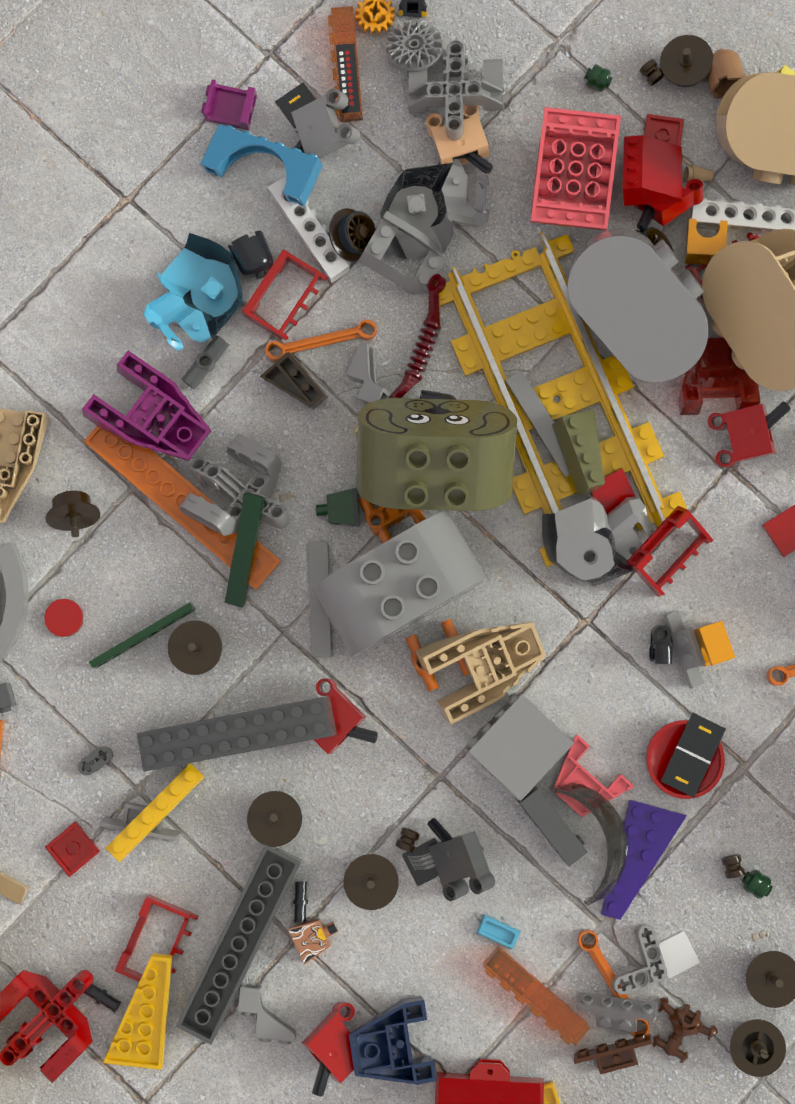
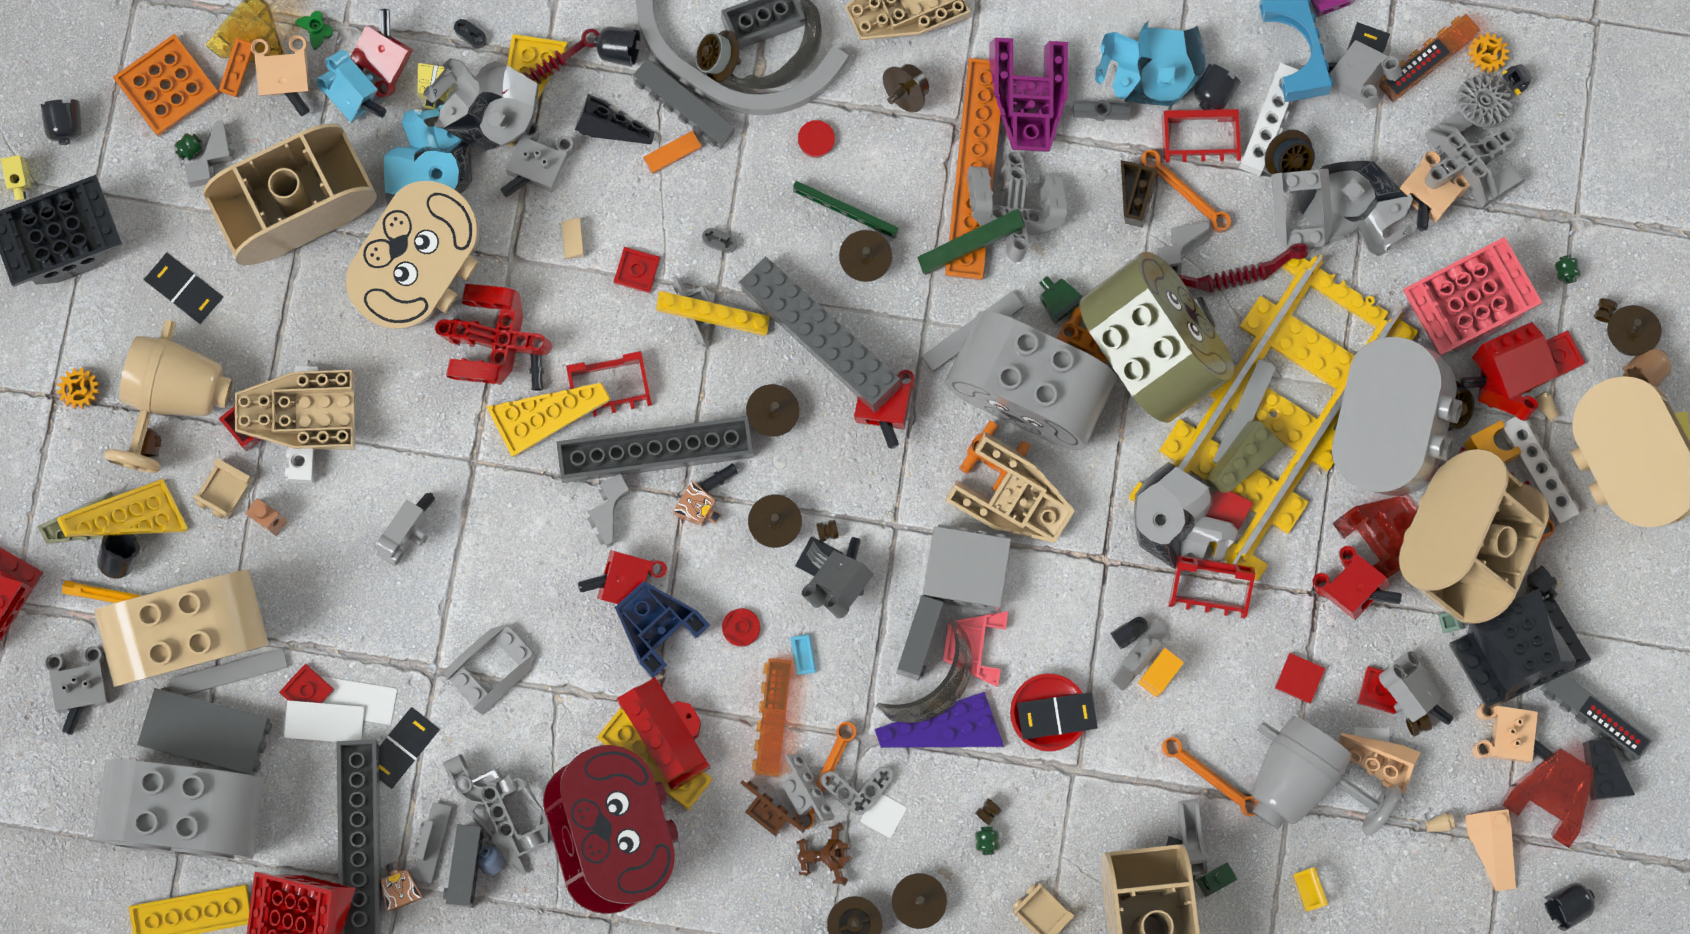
camera: 50 degrees right, 5 degrees down
(440, 968) = (741, 627): none -> red tile

